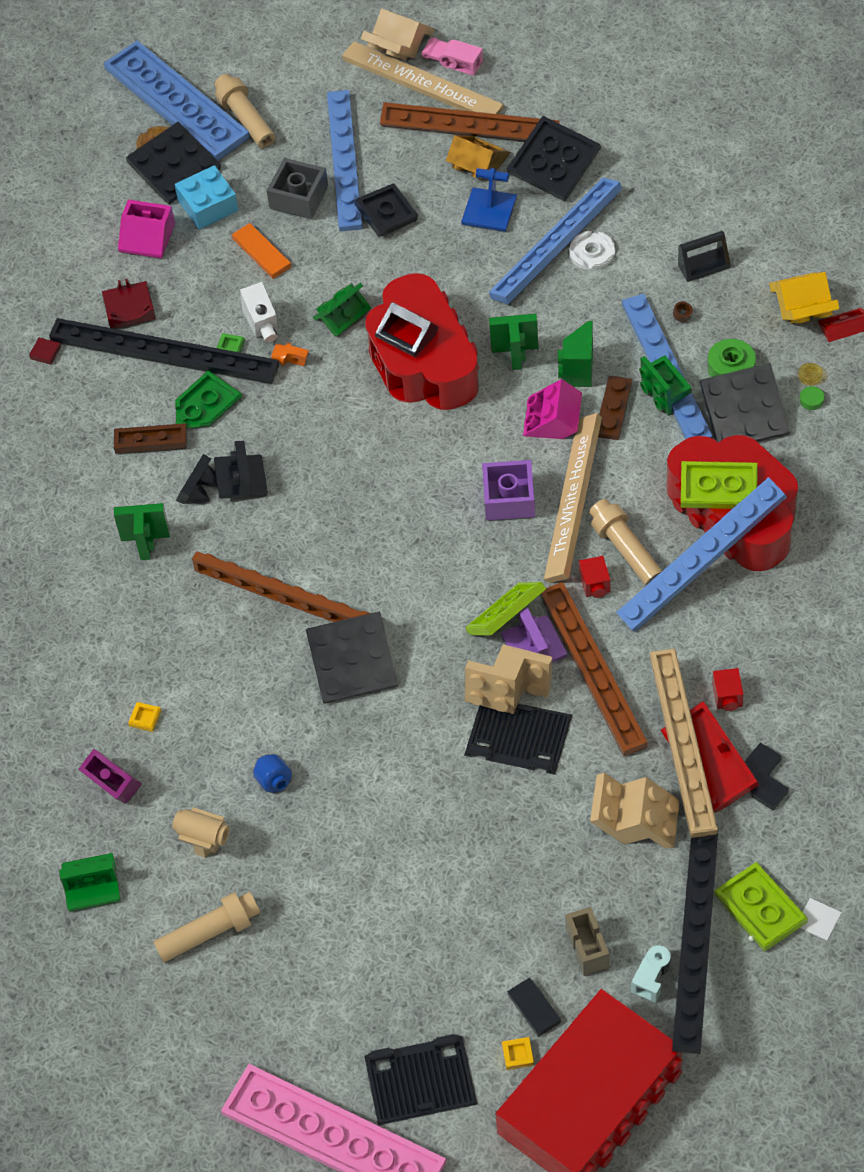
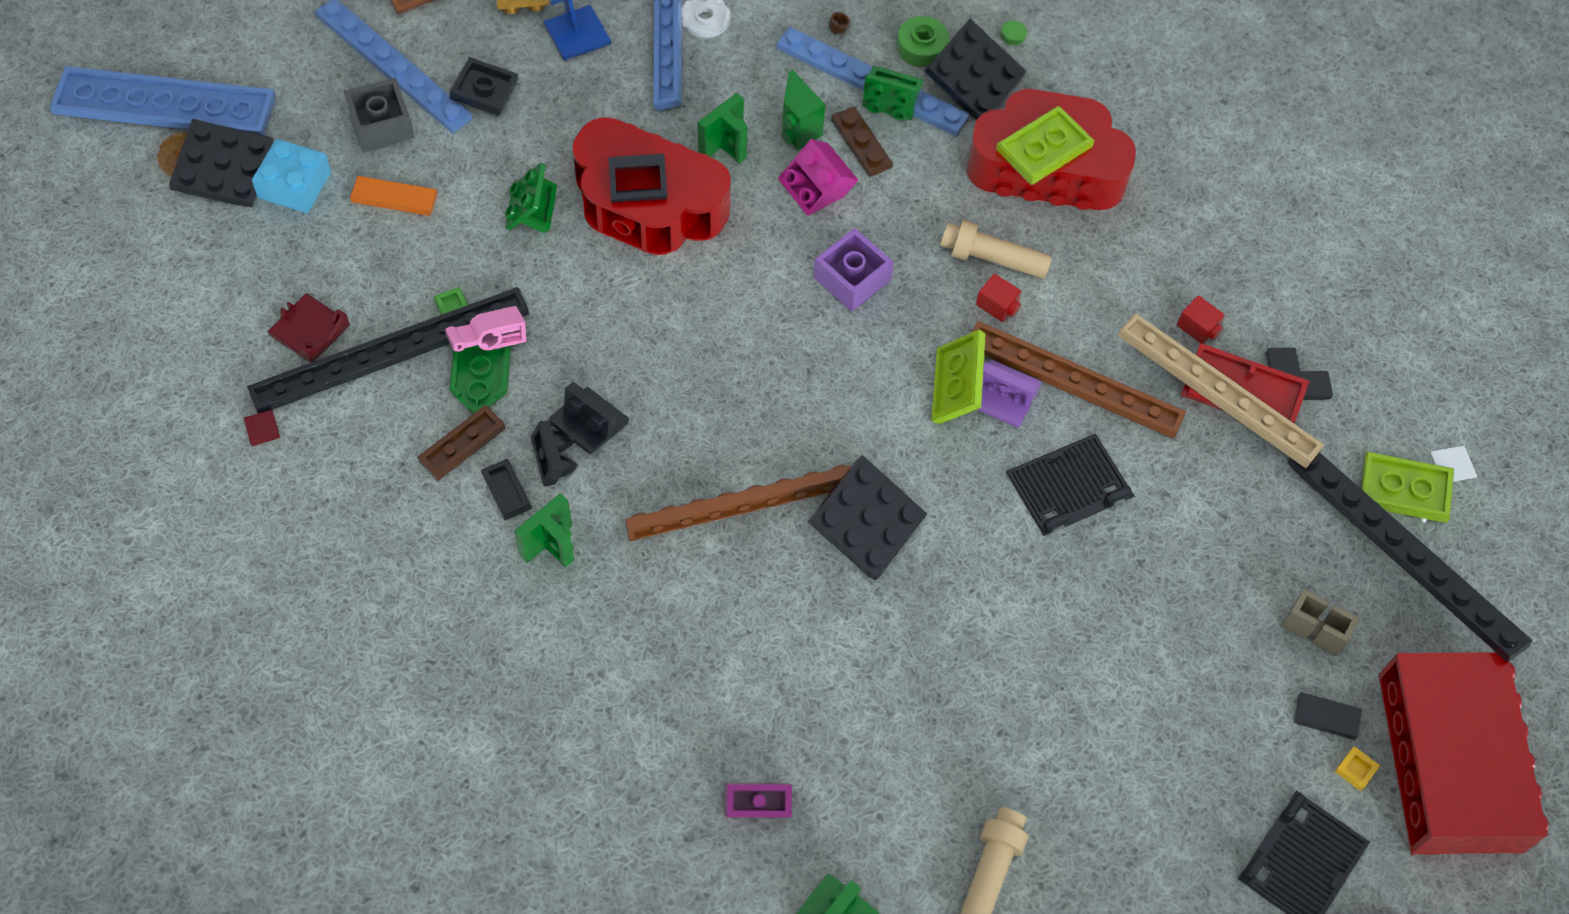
camera: 50 degrees left, 5 degrees up
(144, 716) = (723, 716): yellow tile -> none
(145, 228) = (258, 242): dark pink slope -> none
(151, 485) = (506, 489): none -> black tile
(201, 830) = (905, 782): tan piece -> none
(230, 376) = (489, 330): none -> bright pink piece
(233, 95) = (222, 63): tan piece -> none
(259, 312) = (458, 252): white torso -> none
(272, 773) = (901, 679): blue head -> none
(290, 354) = (522, 274): orange piece -> none
(504, 683) = (1028, 438): tan bracket -> none
(573, 499) = (912, 244): tan tile -> none
(635, 810) = (1243, 477): tan bracket -> none
(649, 973) = (1389, 610): light aqua leg -> none
(701, 554) = (1082, 216): medium blue plate -> none
(810, 374) = (991, 13): clear yellow tile -> none

